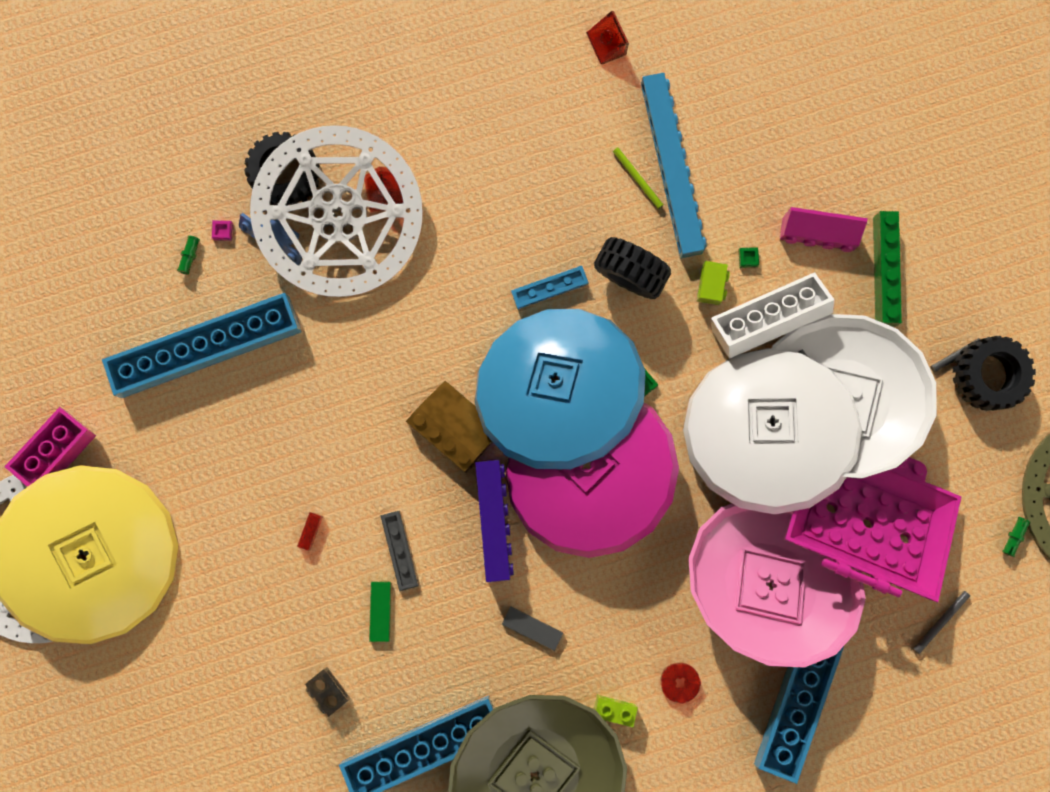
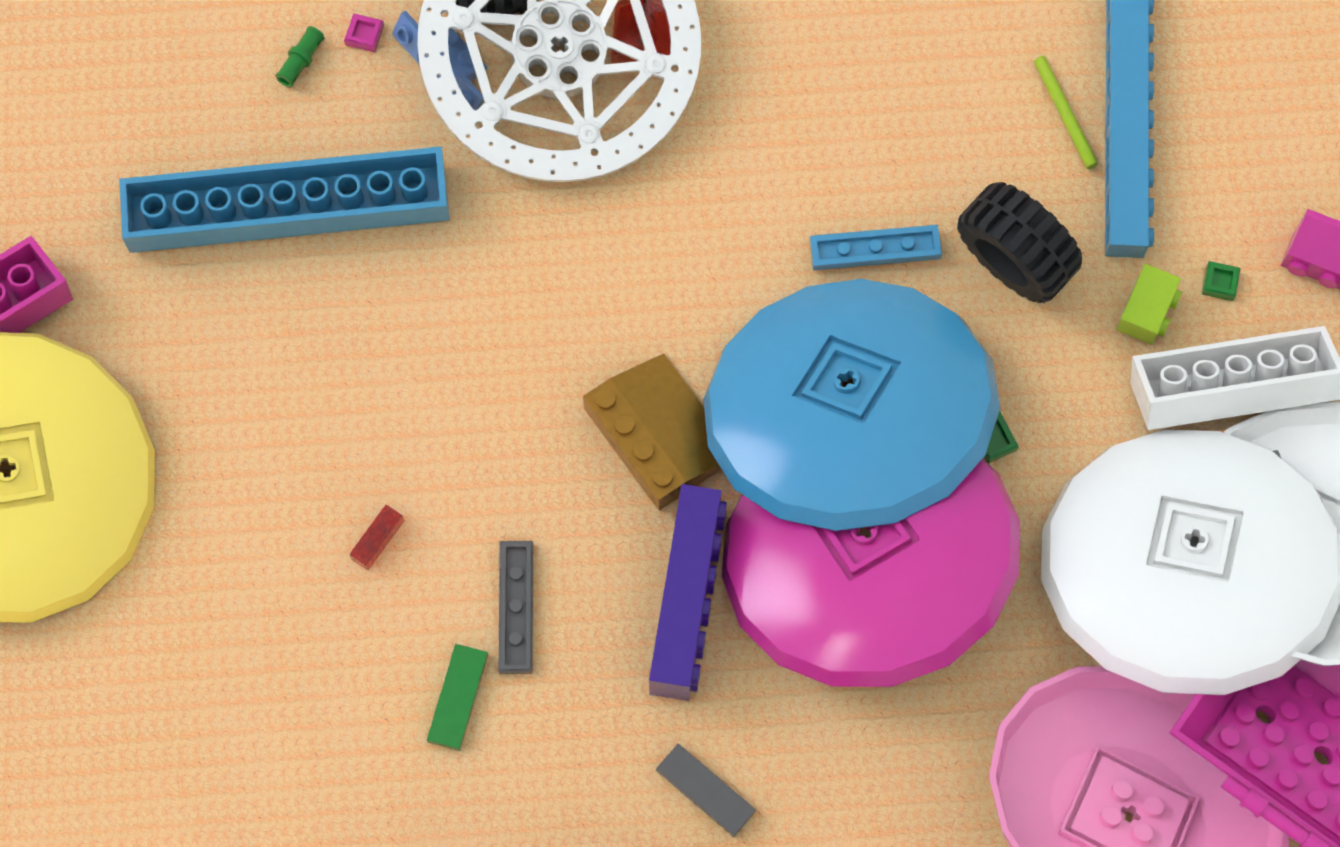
camera: 15 degrees right, 10 degrees down
(332, 688) = (341, 800): clear smoke brick -> none

